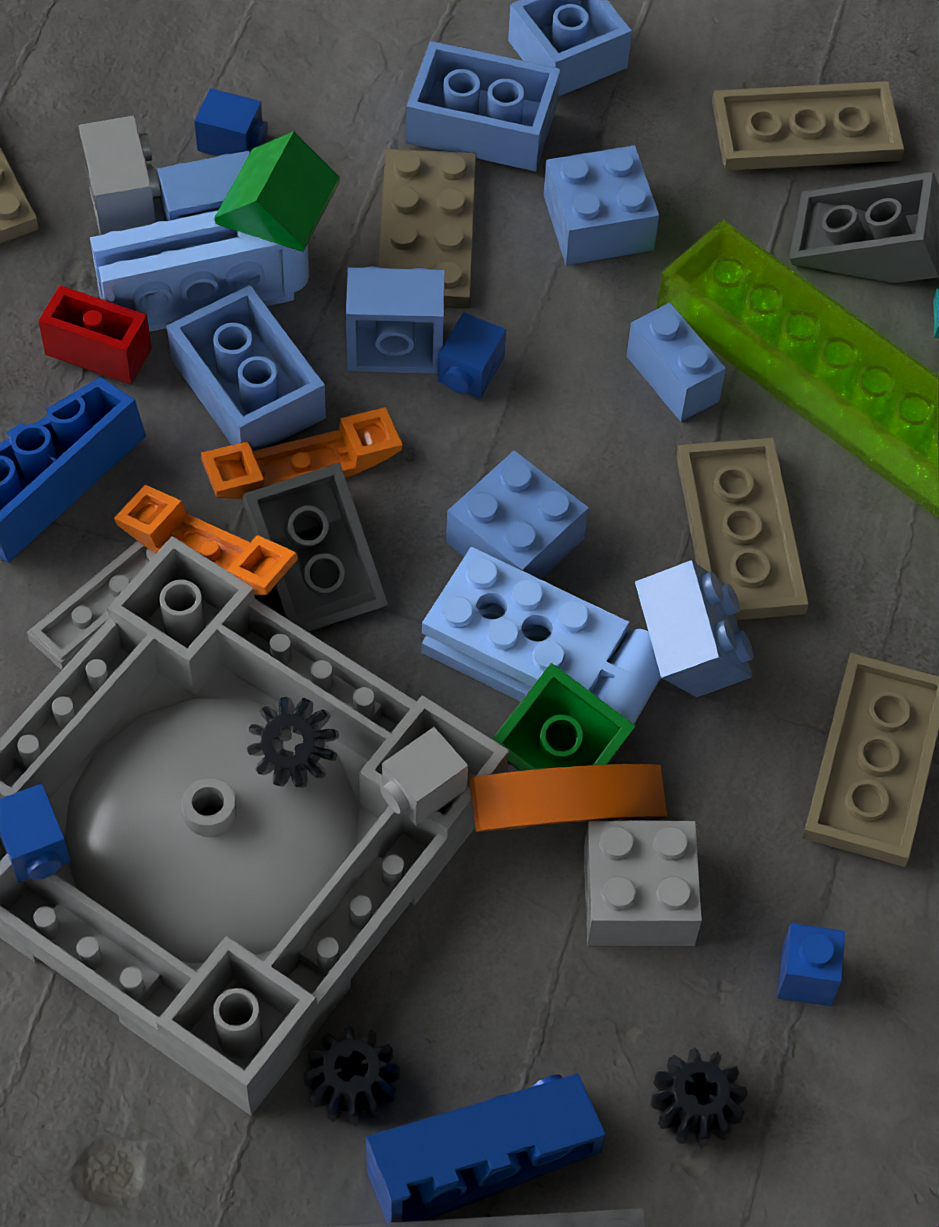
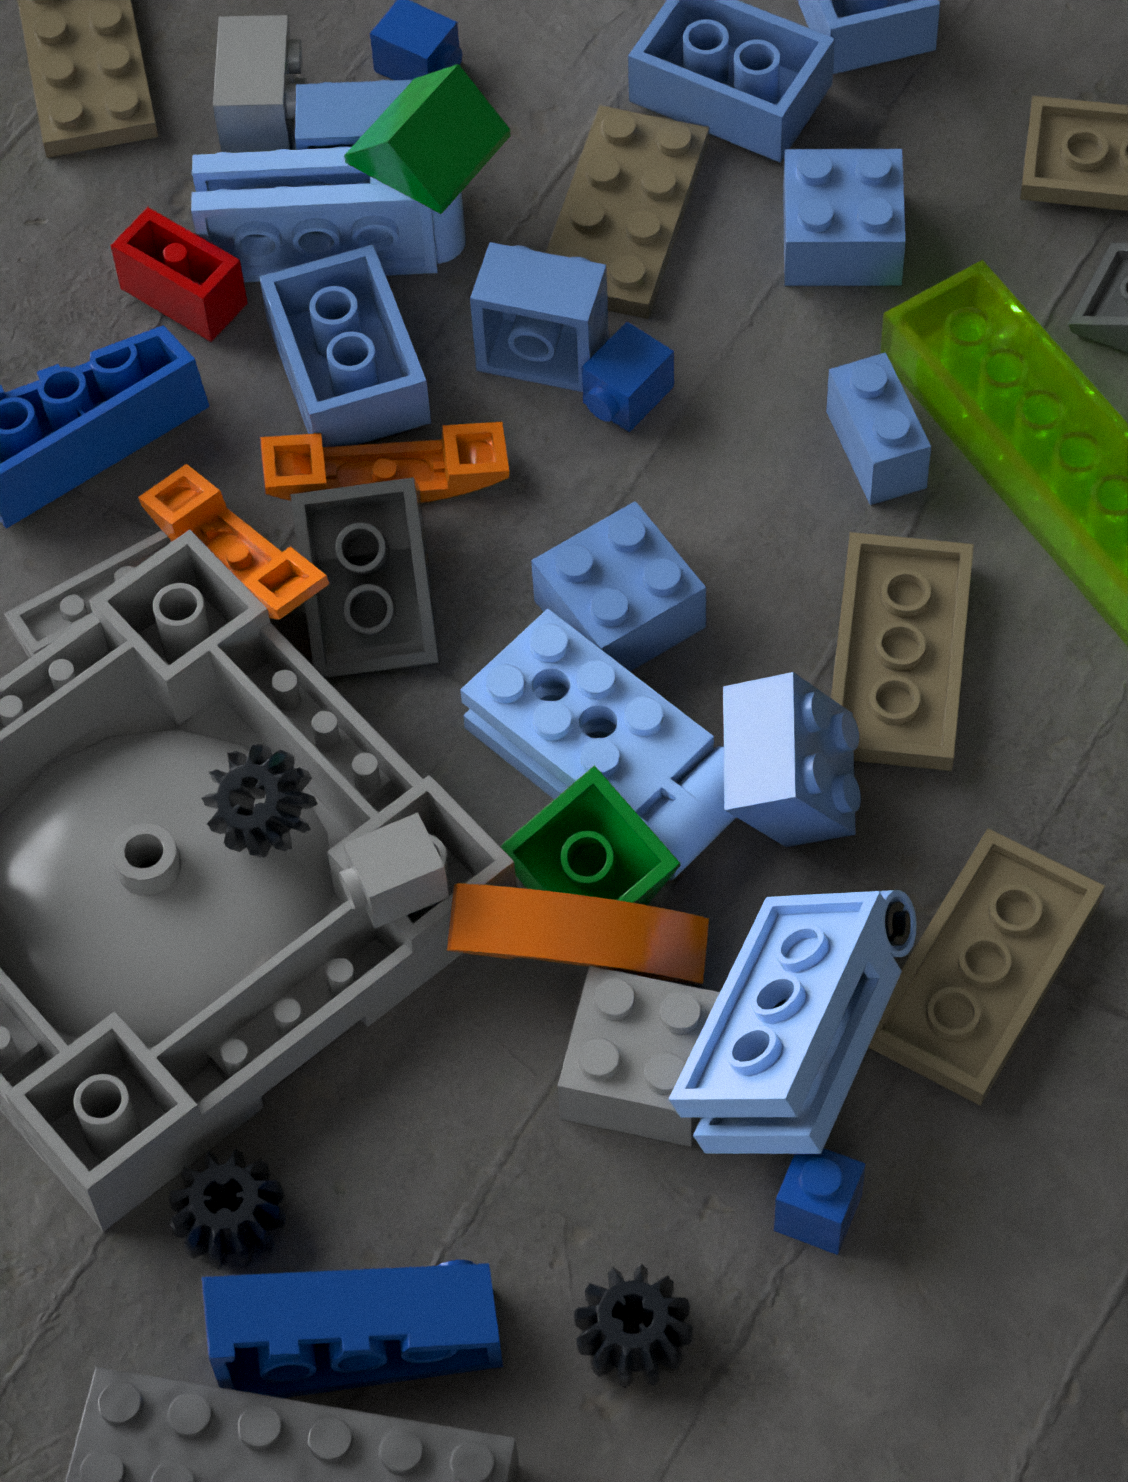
camera: 20 degrees right, 0 degrees up
(760, 832) = (794, 1021): none -> light blue hinge

